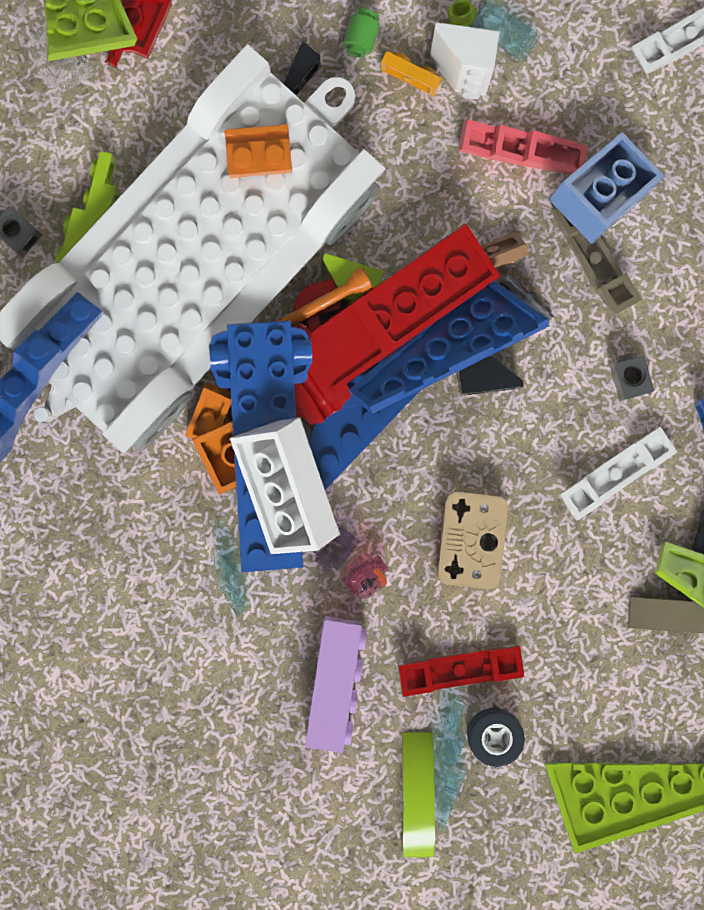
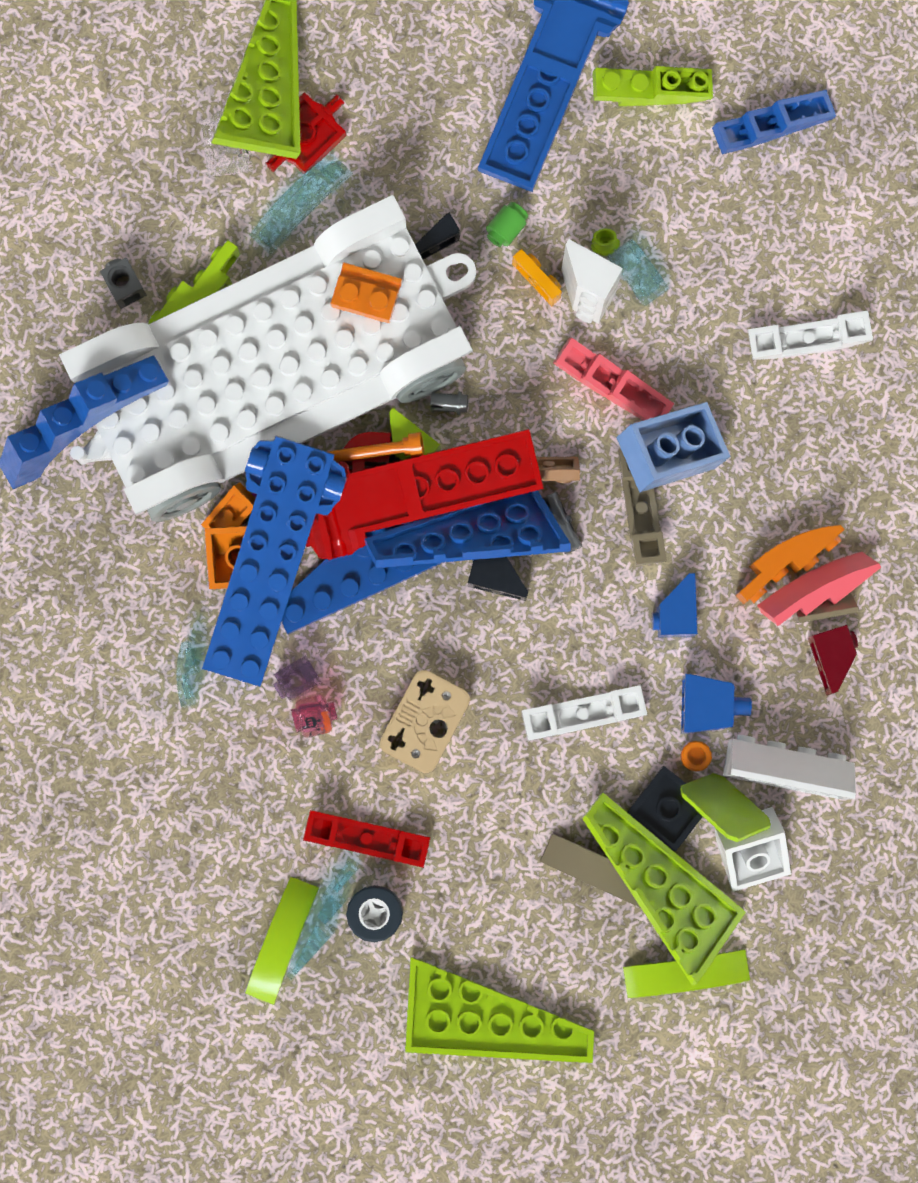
camera: 25 degrees right, 5 degrees down
(153, 88) = (299, 202): none -> clear light blue slope
(285, 487) = (271, 603): white slope -> none
(333, 685) = (244, 802): lavender brick -> none
(374, 227) = (449, 402): none -> dark grey pin
(643, 384) = (622, 639): dark grey brick -> none
(668, 342) = (678, 611): none -> blue slope

